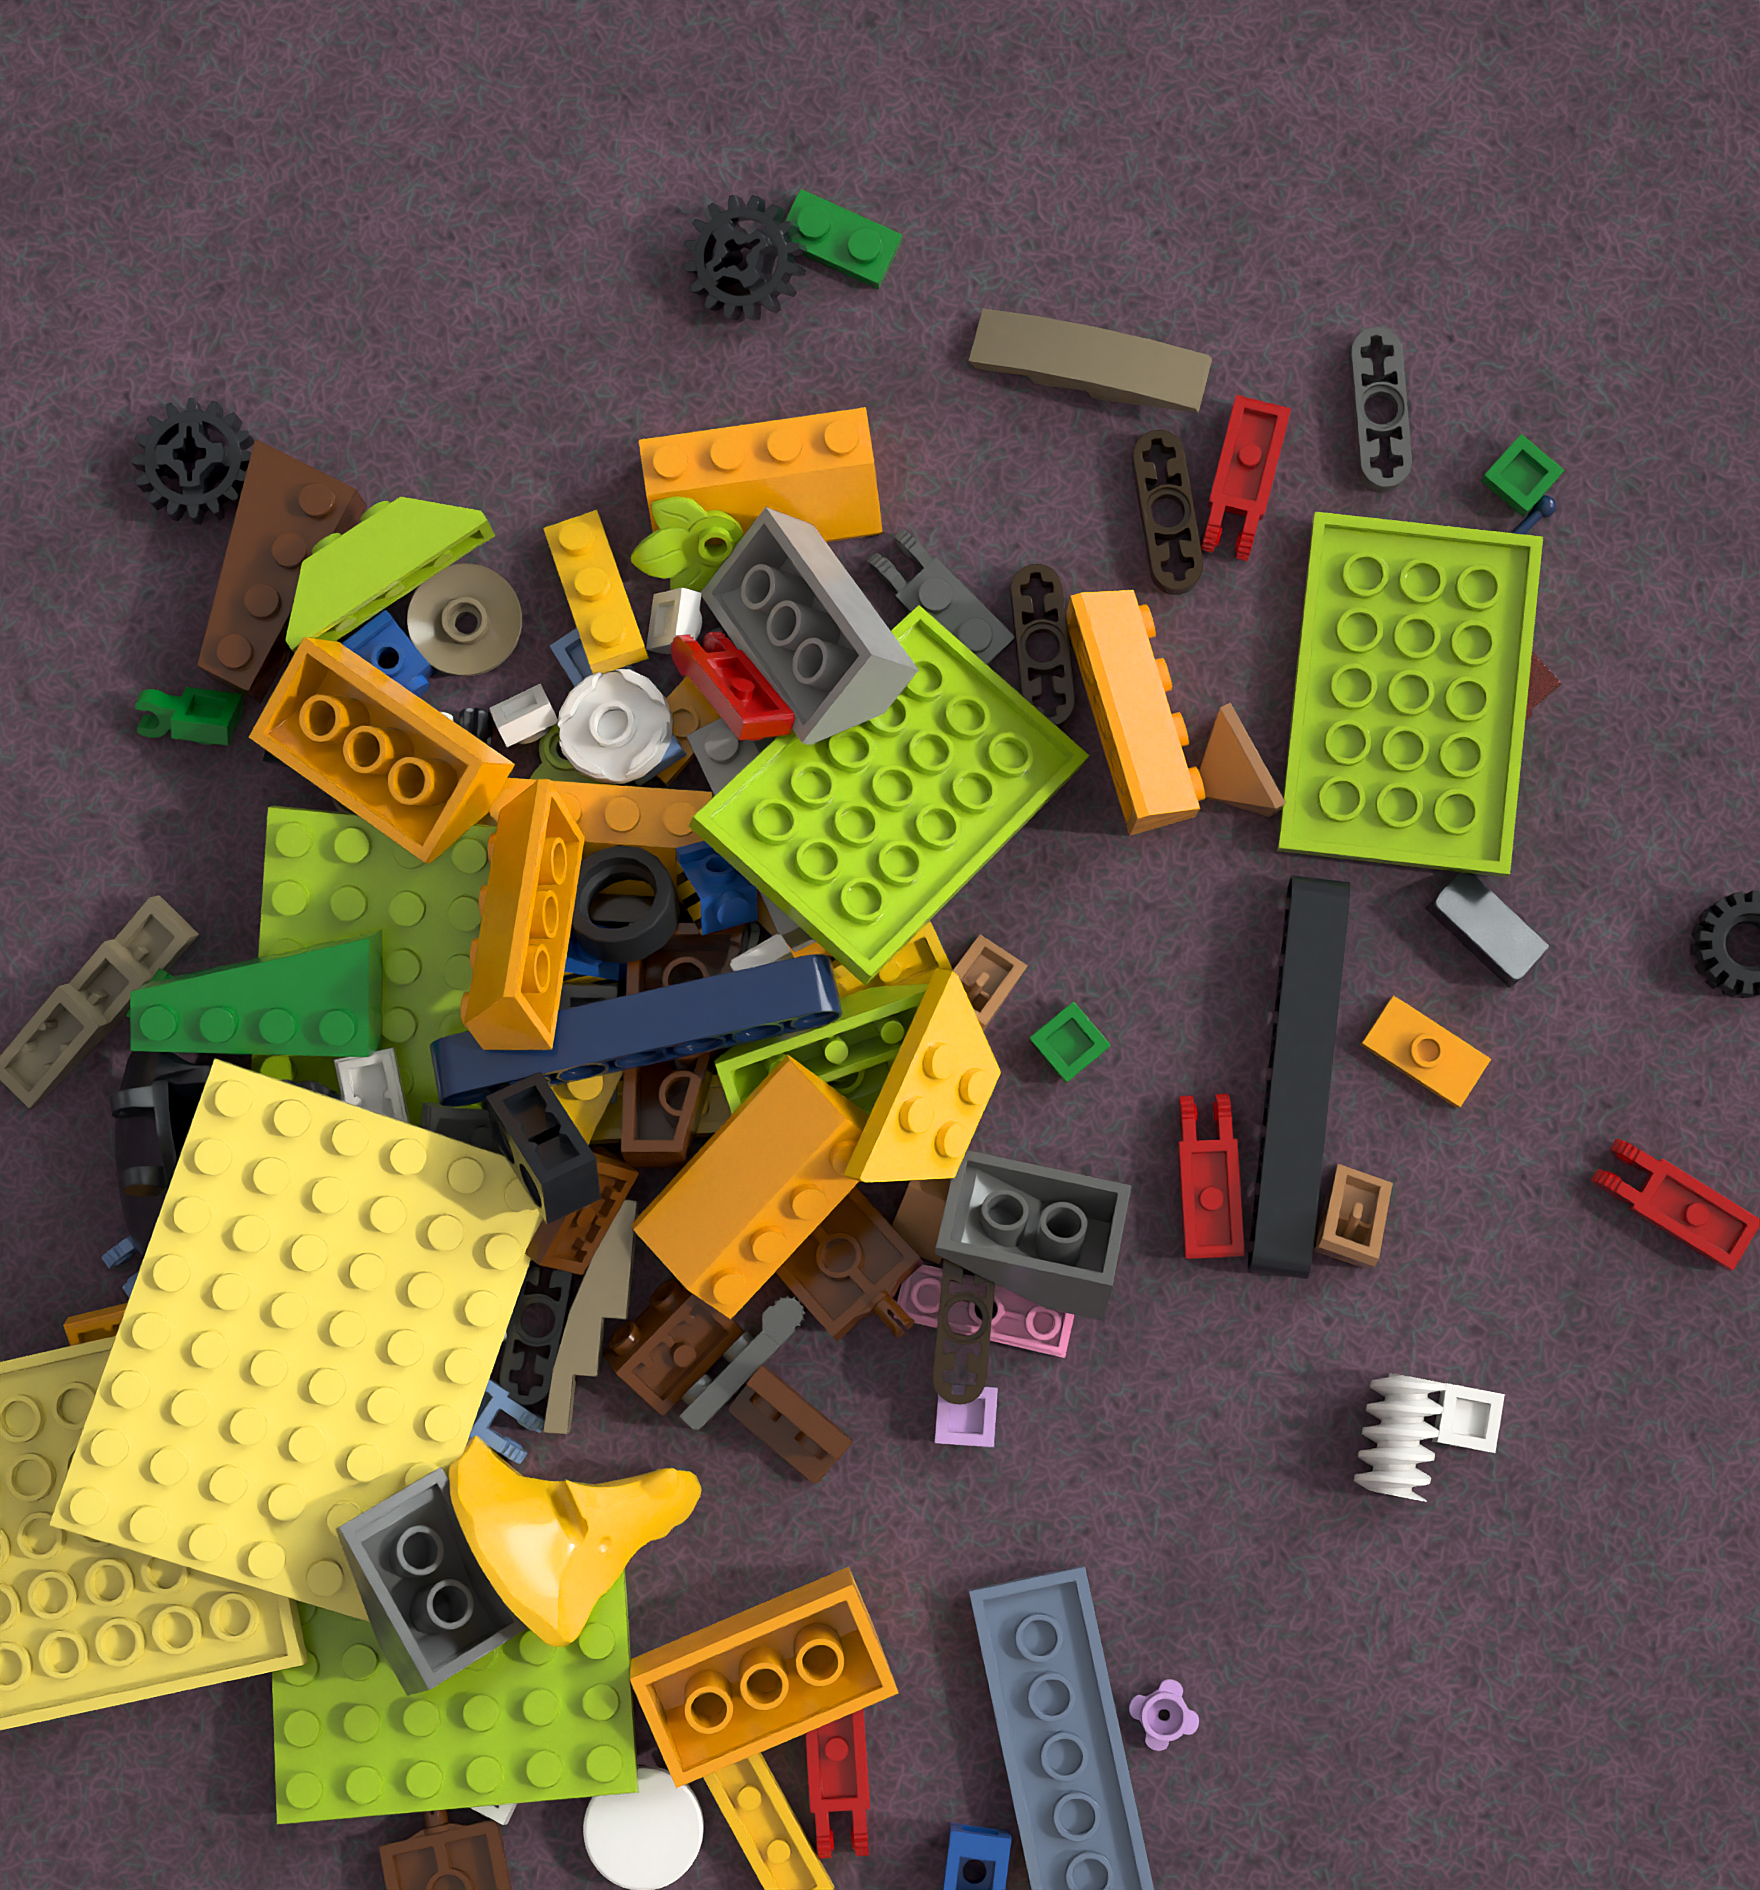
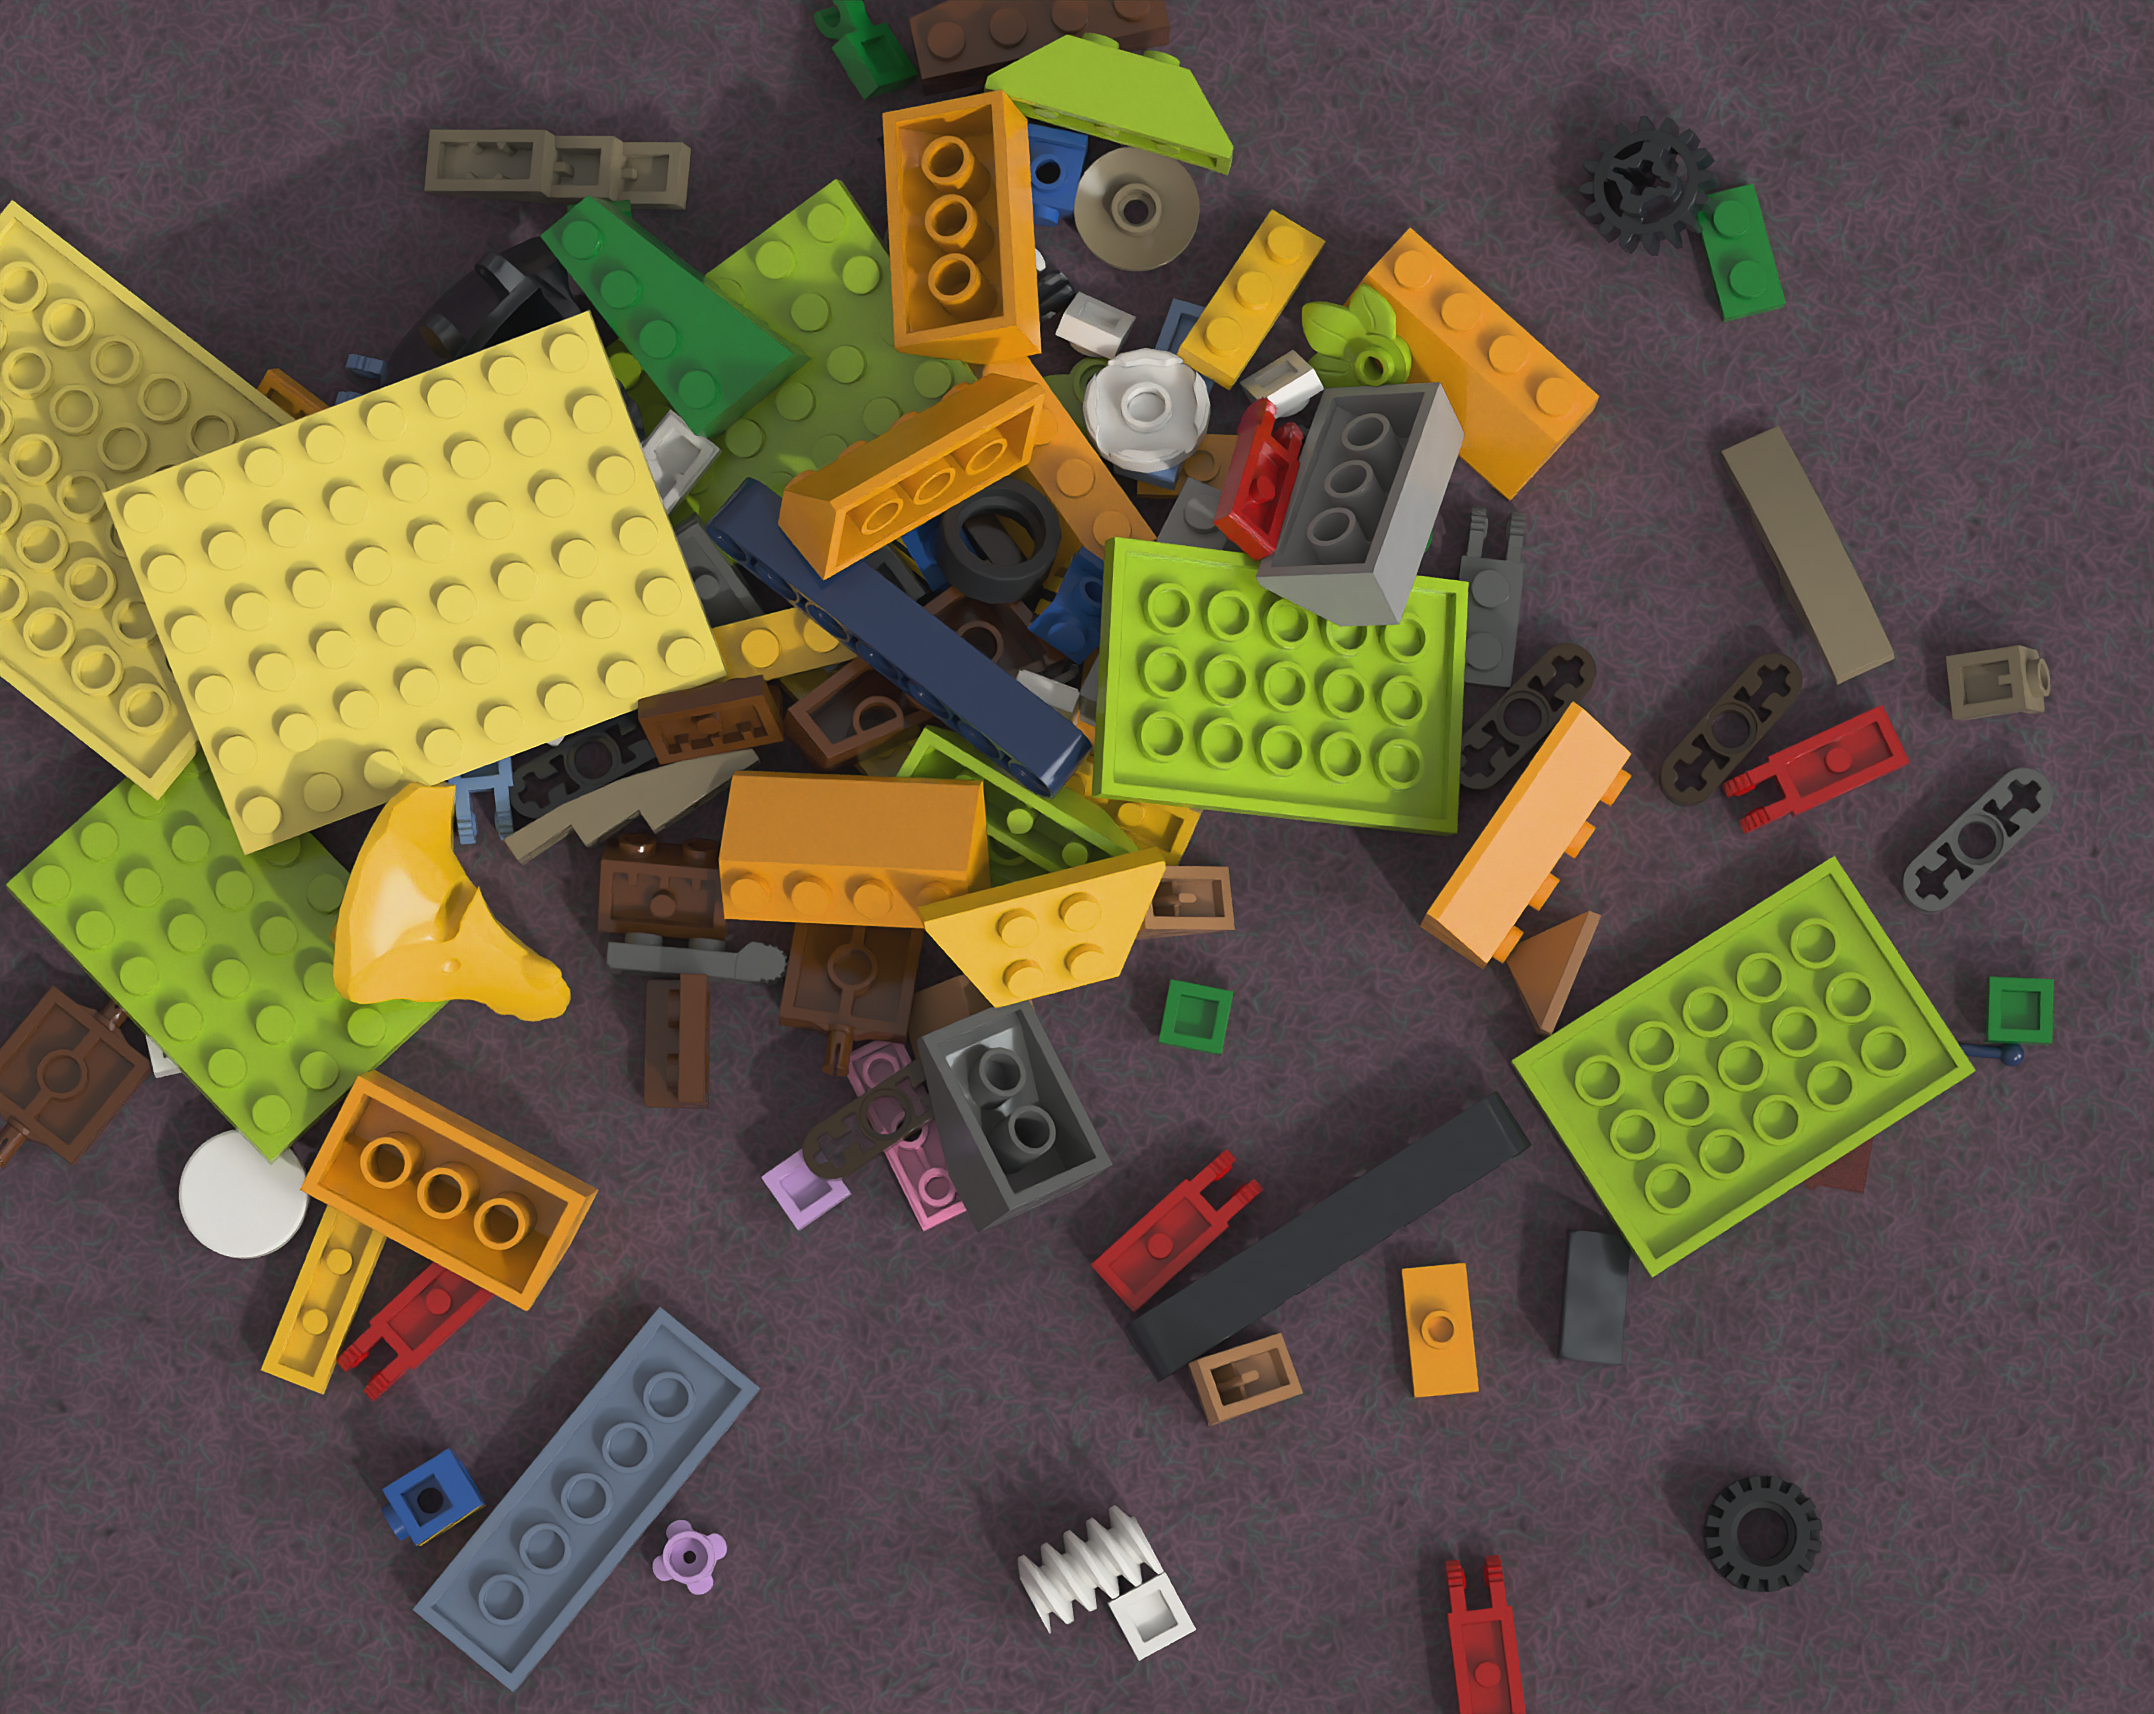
camera: 50 degrees right, 0 degrees up
(424, 1585) = (299, 839): dark grey slope -> none
(543, 1147) = (737, 640): black brick -> none
(1283, 306) = (1997, 682): none -> dark tan bracket

